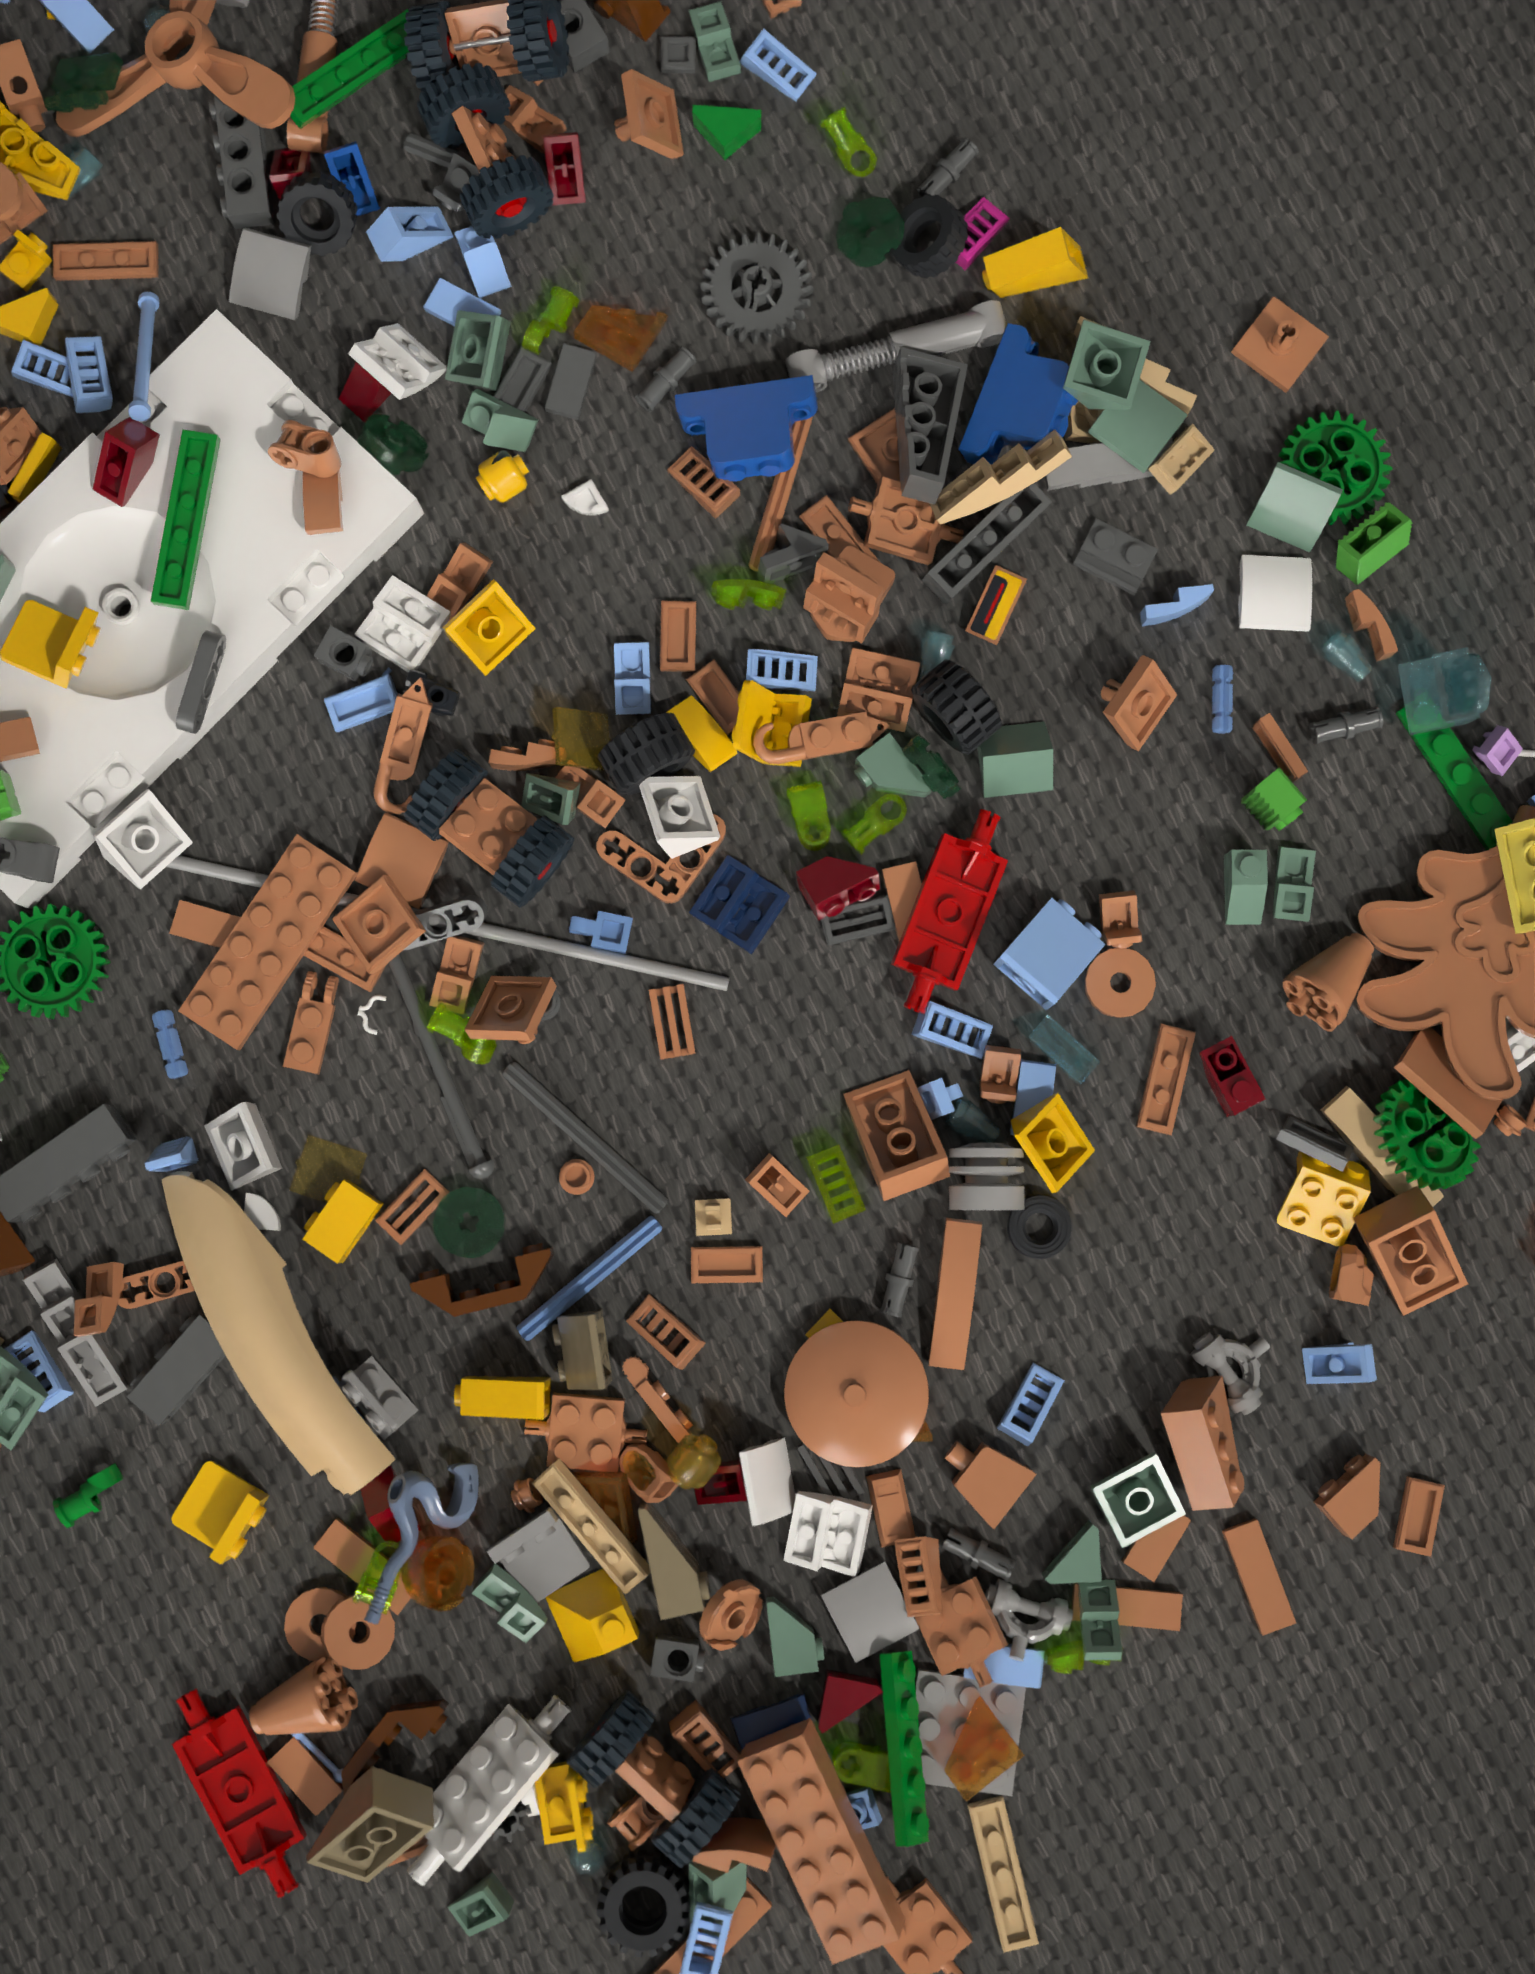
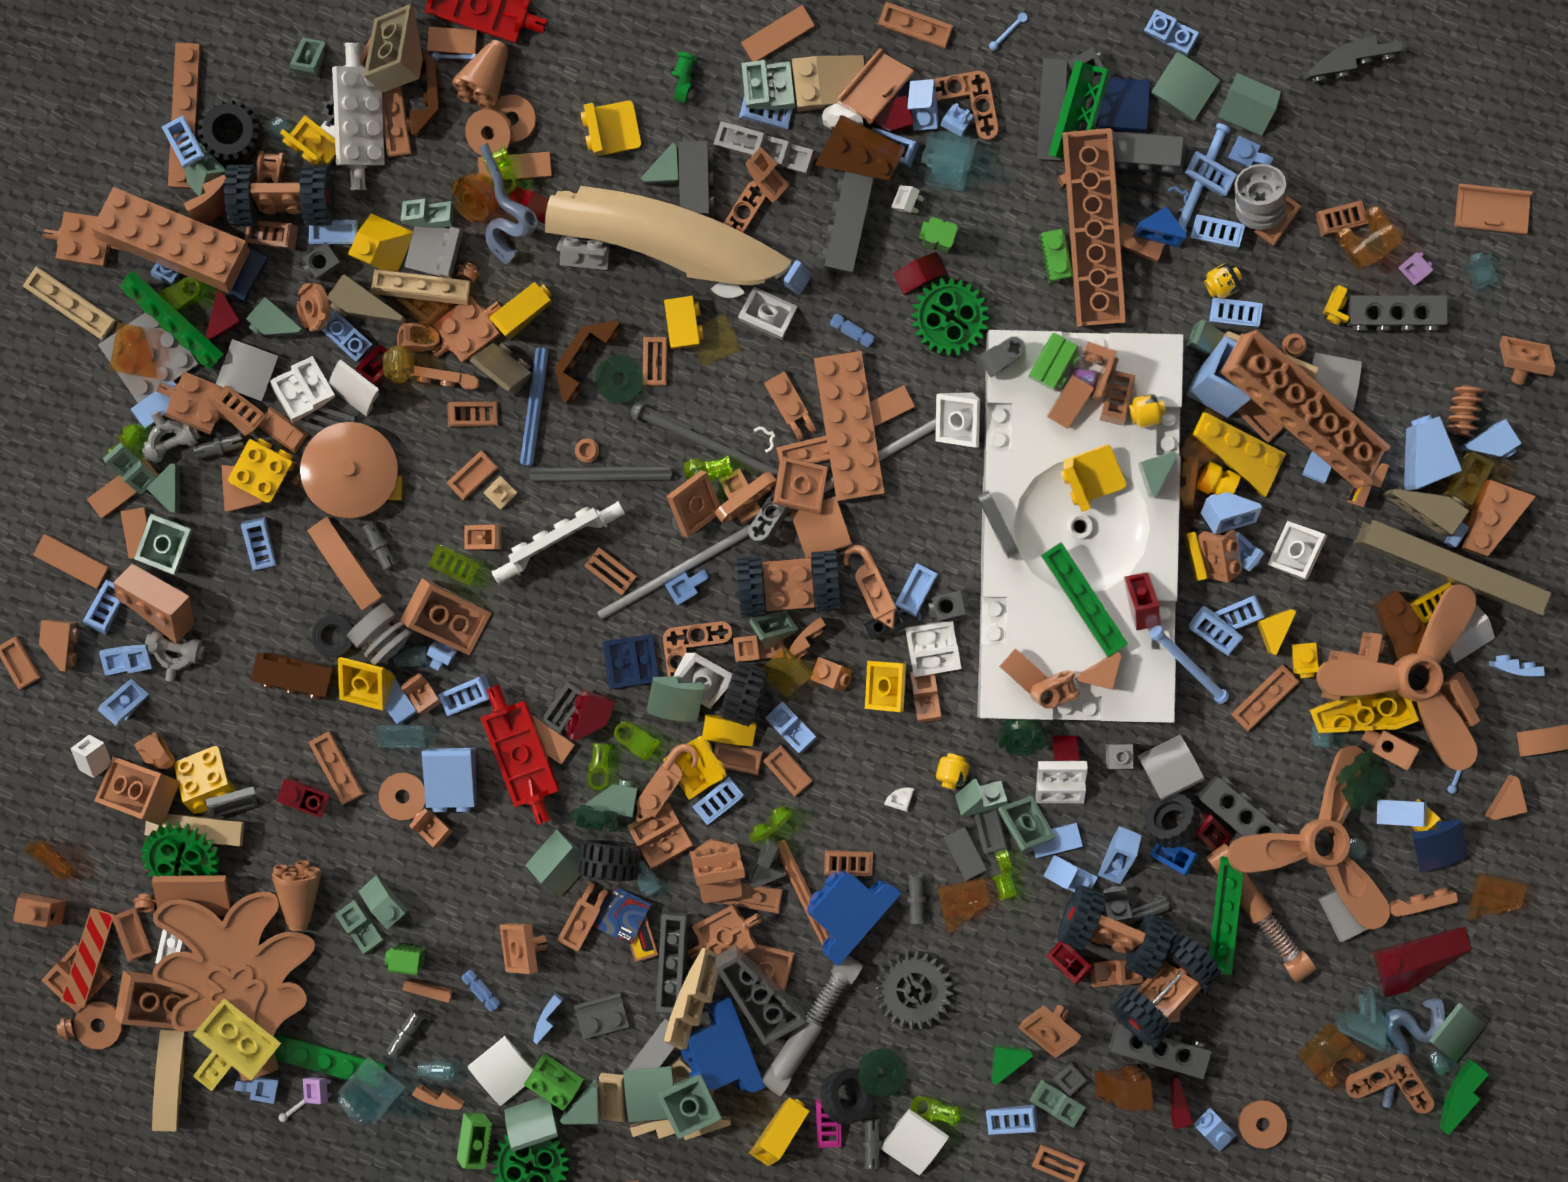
camera: 140 degrees right, 5 degrees up
(40, 1040) = (919, 272): none -> dark red slope
(203, 1409) = (664, 169): none -> sand green slope
(237, 424) = (1102, 673): none -> nougat slope
(311, 333) = (1119, 755): none -> light grey brick
(449, 965) = (746, 497): none -> nougat beam
(453, 1739) = (394, 123): none -> nougat tile
(535, 694) = (831, 674): none -> nougat bracket
(629, 1672) = (339, 233): none -> light blue tile
(676, 1110) = (543, 540): none -> white plate
(725, 1547) = (346, 336): none -> light blue slope
(729, 816) = (674, 699): none -> sand green slope
(901, 131) = (914, 1142): none -> white slope
(954, 1483) = (261, 469): none -> yellow bracket
(996, 641) = (621, 915): none -> sticker
(1043, 676) = (581, 919): none -> nougat hinge
(1123, 1222) = (292, 675): none -> reddish brown wedge
(1221, 473) = (585, 1108): none -> sand green slope
(1229, 530) = (553, 1082): none -> bright green bracket
(1293, 1410) = (125, 658): none -> light blue slope
(1297, 1492) = (88, 620): none -> light blue slope
(1427, 1337) = (91, 756): none -> white panel

